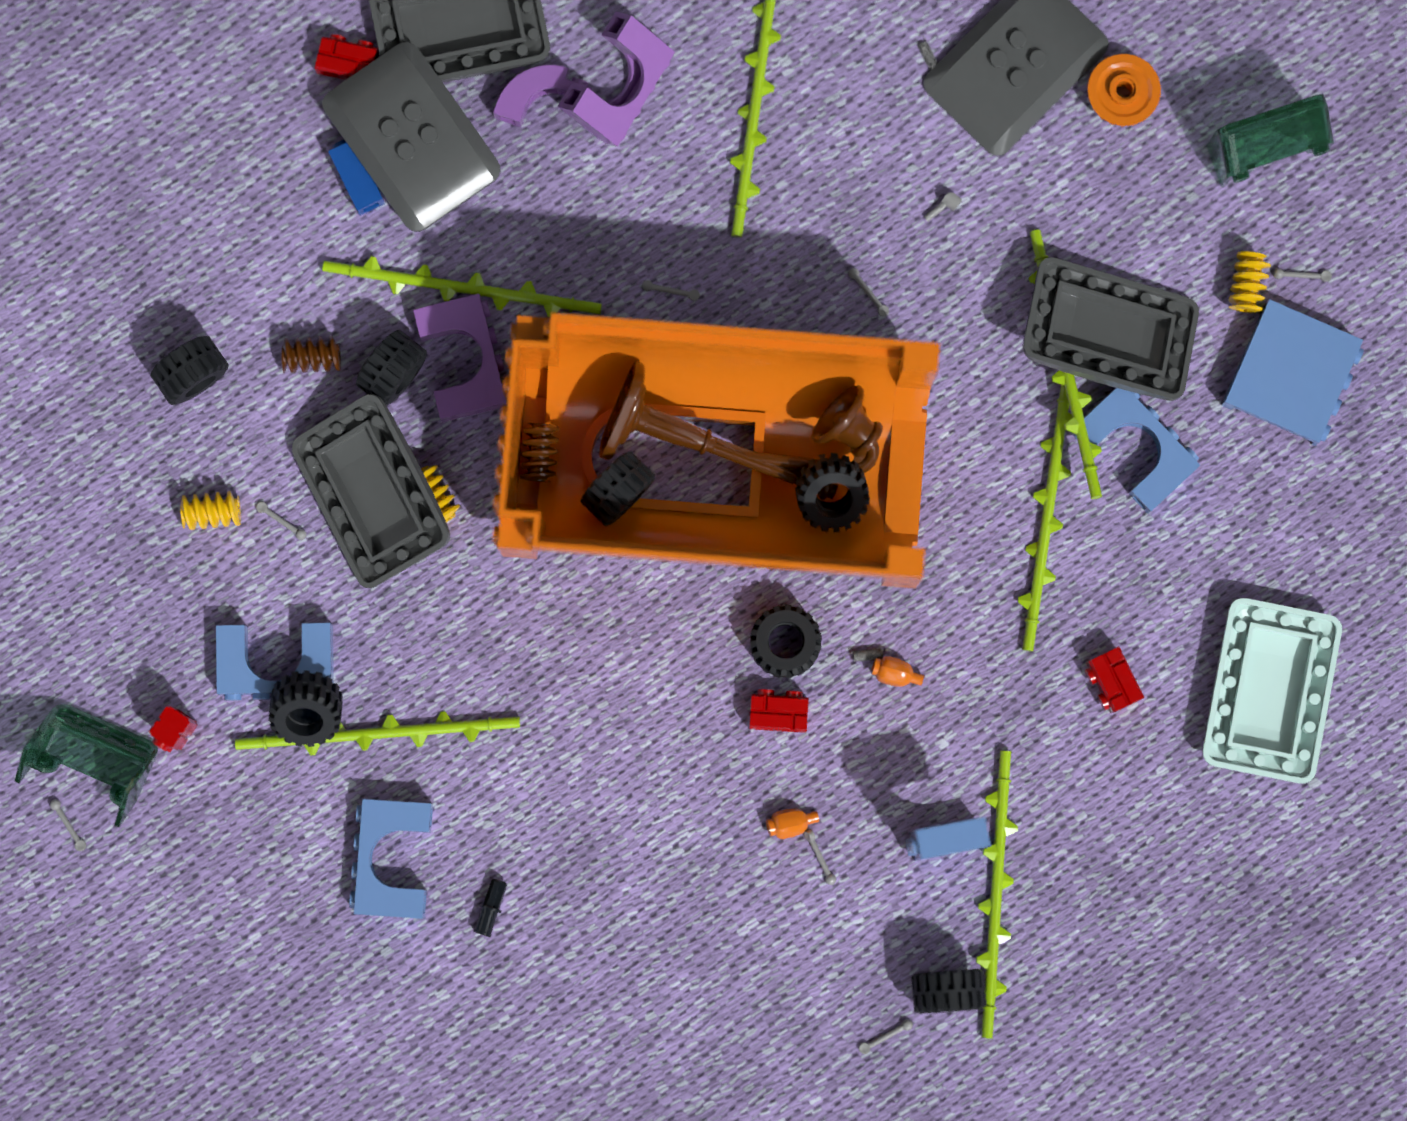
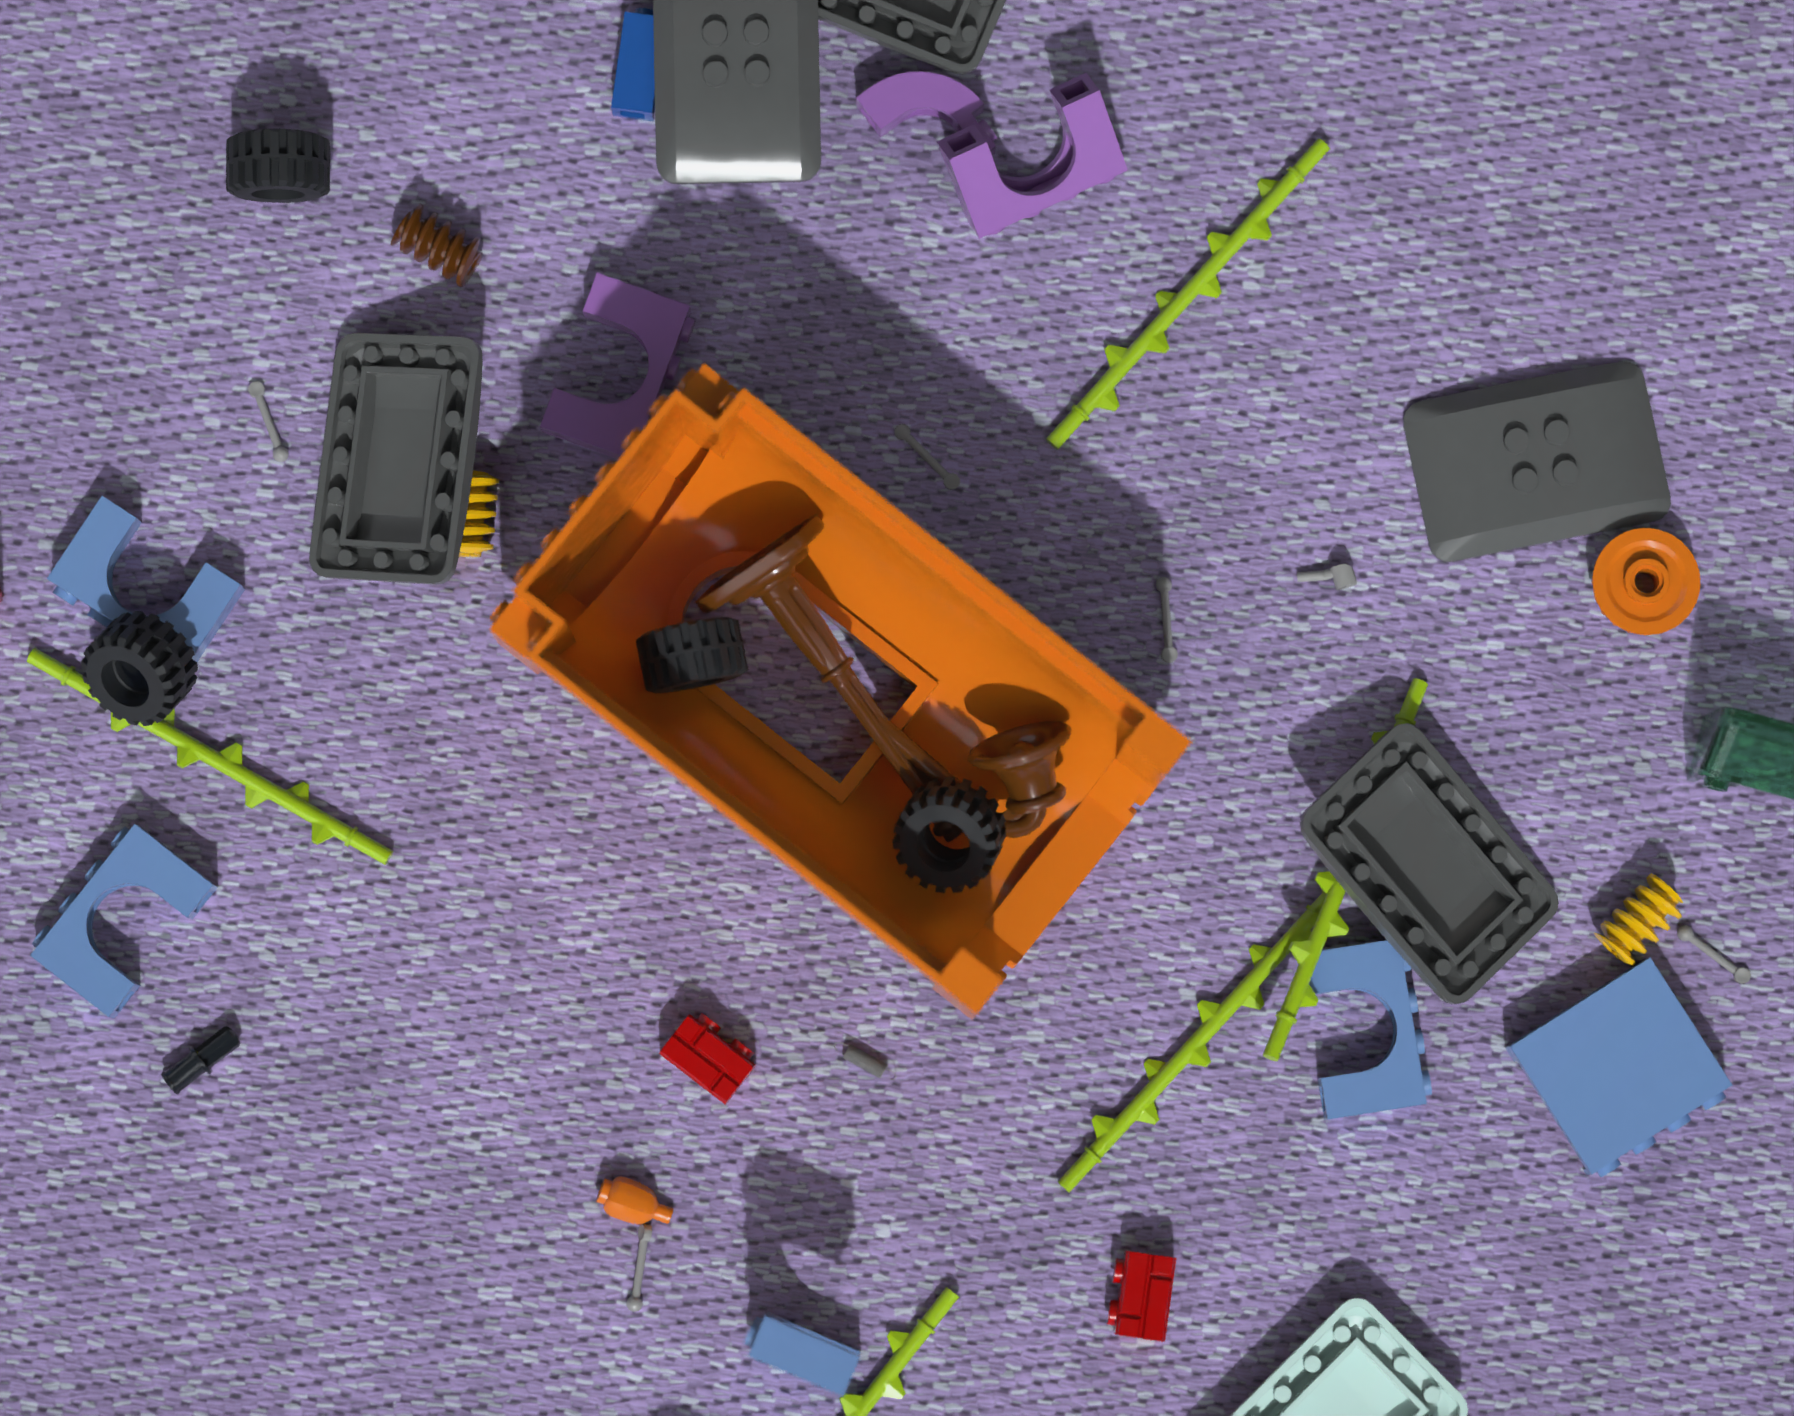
camera: 30 degrees right, 0 degrees up
(210, 511) = (190, 353): yellow piece -> none
(391, 367) = (522, 324): black tyre -> none
(449, 288) = (692, 293): lime plant -> none
(539, 452) = (630, 547): reddish brown piece -> none
(785, 616) = (774, 940): black tyre -> none
(895, 672) = (883, 1105): orange plant -> none
(927, 54) = (1436, 378): light grey piece -> none

